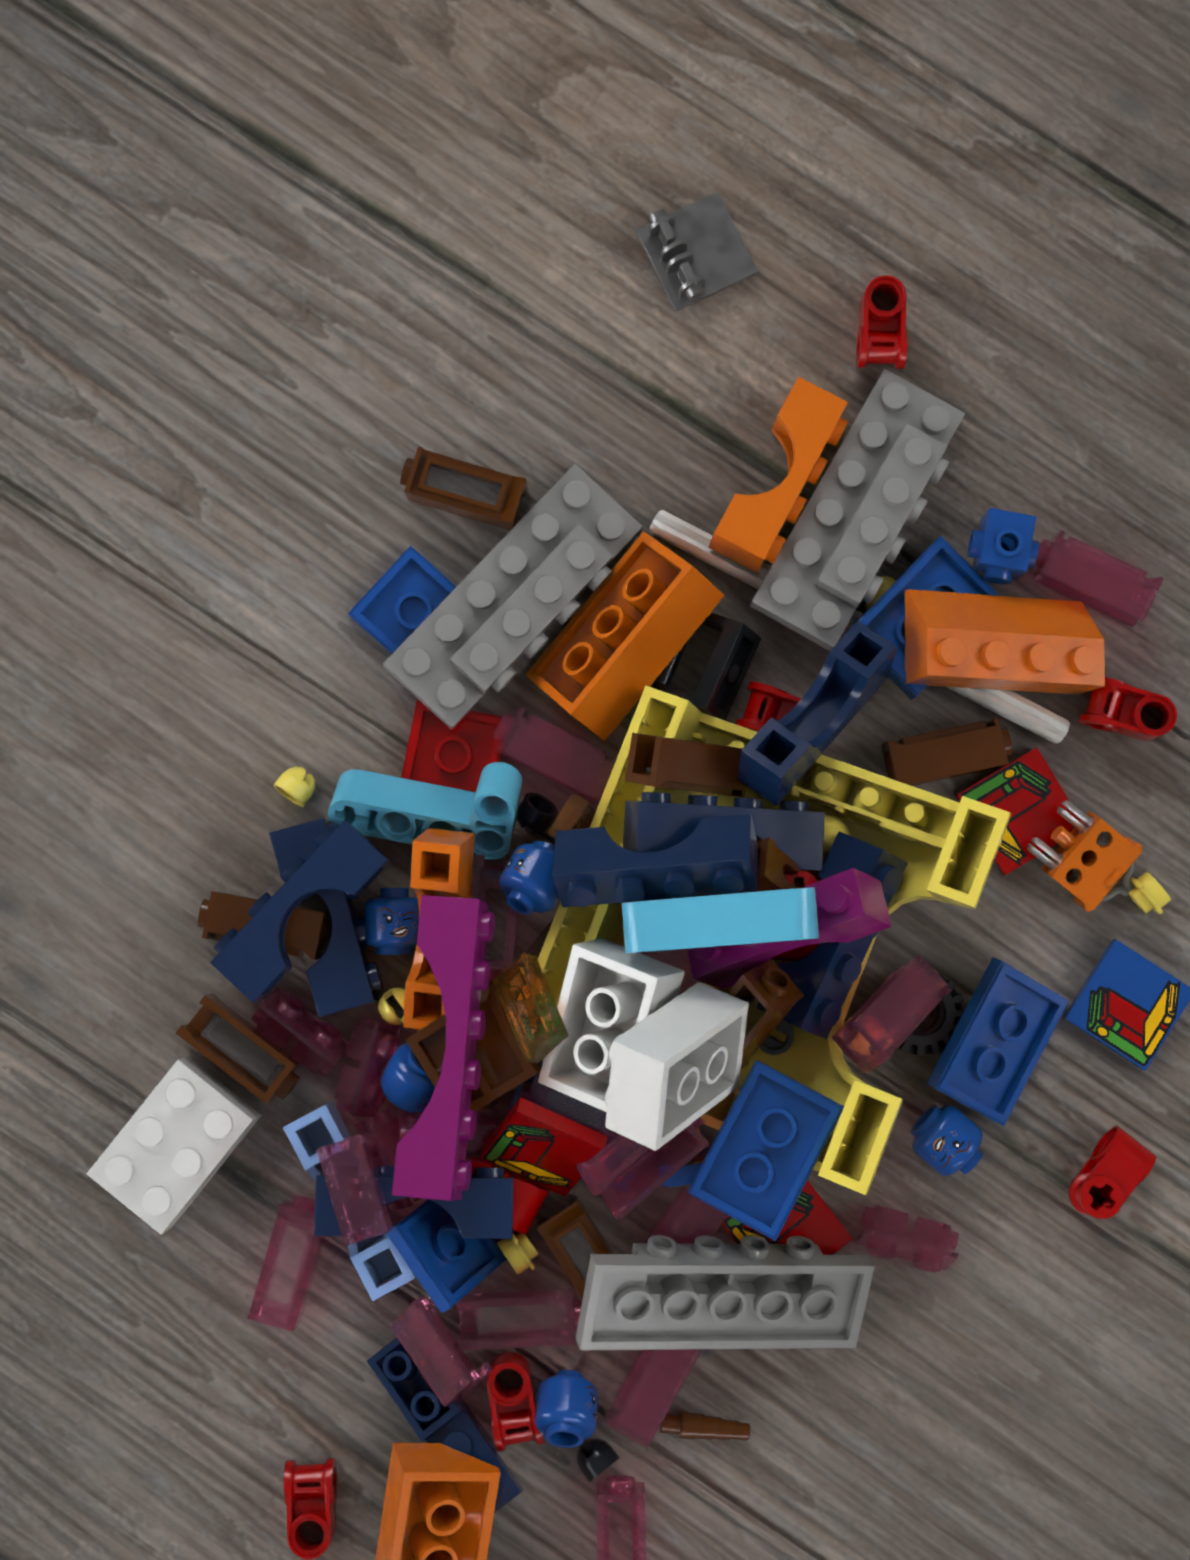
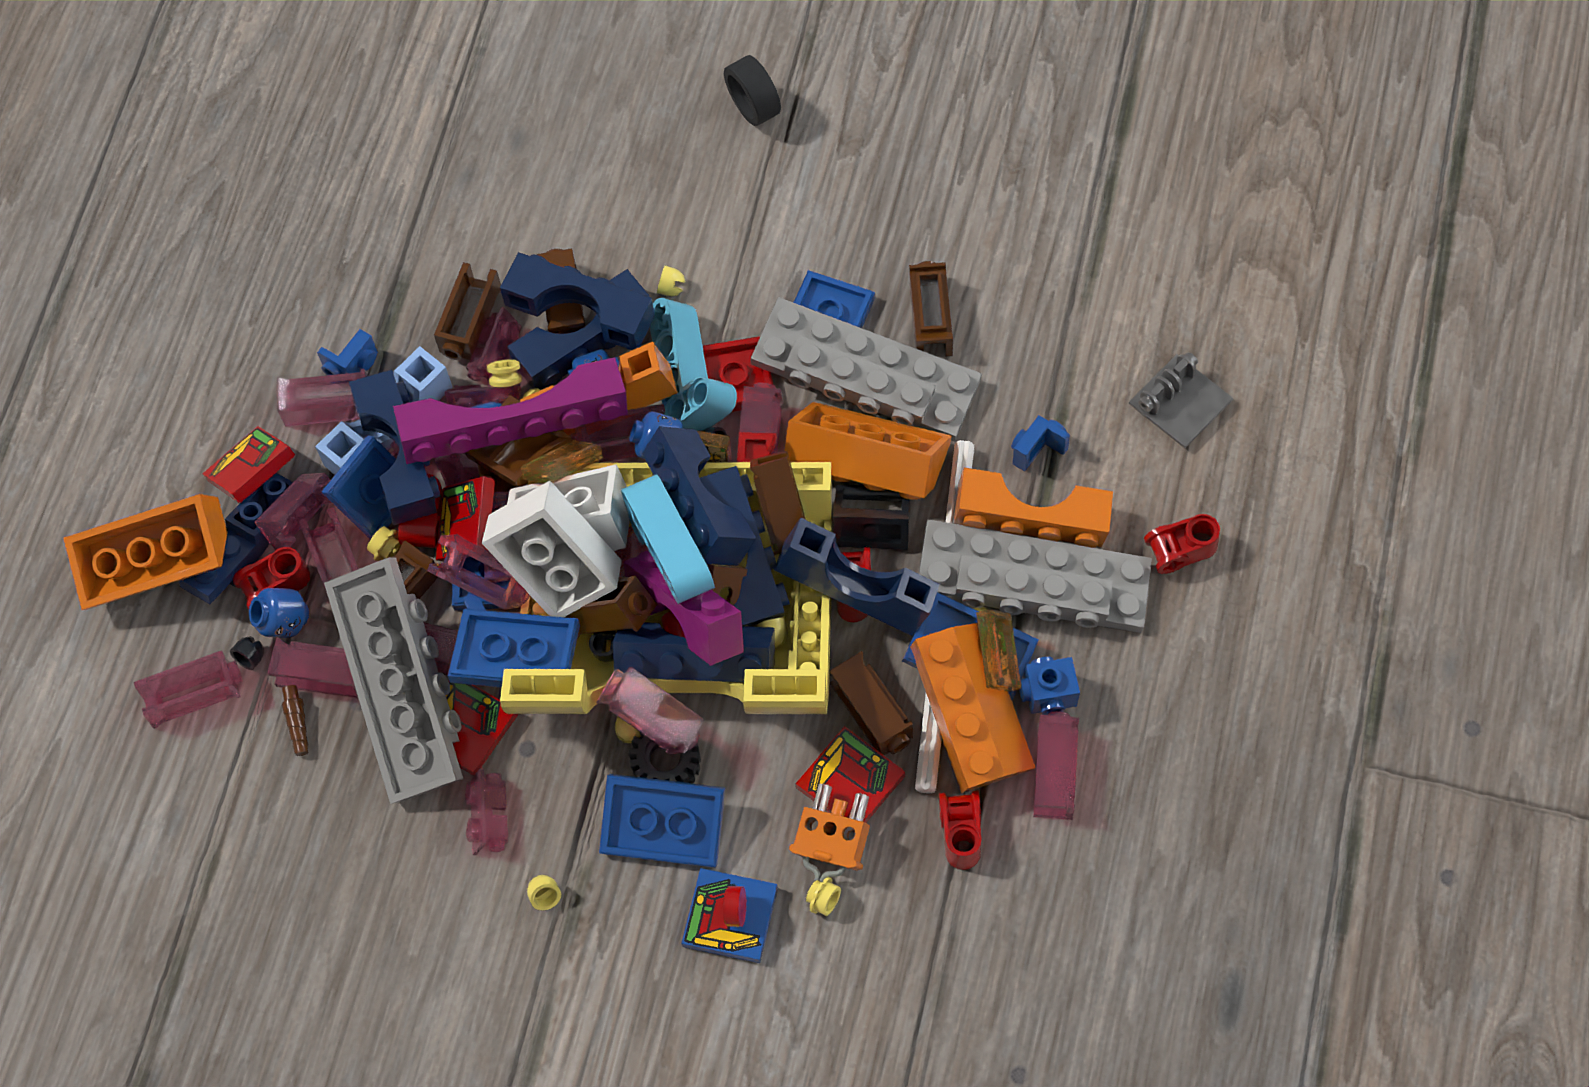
camera: 75 degrees right, 20 degrees down
(71, 585) = (752, 90): none -> black tyre
(173, 1144) = (385, 294): white brick -> none
(248, 1206) = (357, 355): none -> blue bracket
(310, 1496) = (157, 473): red piece -> none
(350, 1388) = (249, 464): none -> red tile
(353, 1033) = (504, 373): none -> light yellow bush
(354, 1189) = (398, 388): clear pink hinge -> none
(585, 768) = (755, 445): none -> red tile
(687, 444) = (1040, 433): none -> blue bracket
(947, 1140) = (572, 811): blue head -> none
(952, 586) = (998, 650): none -> clear orange tile
(1028, 1205) = (543, 892): none -> light yellow hinge
(1116, 1169) = (596, 945): red piece -> none
(1136, 997) = (734, 906): none -> red tile

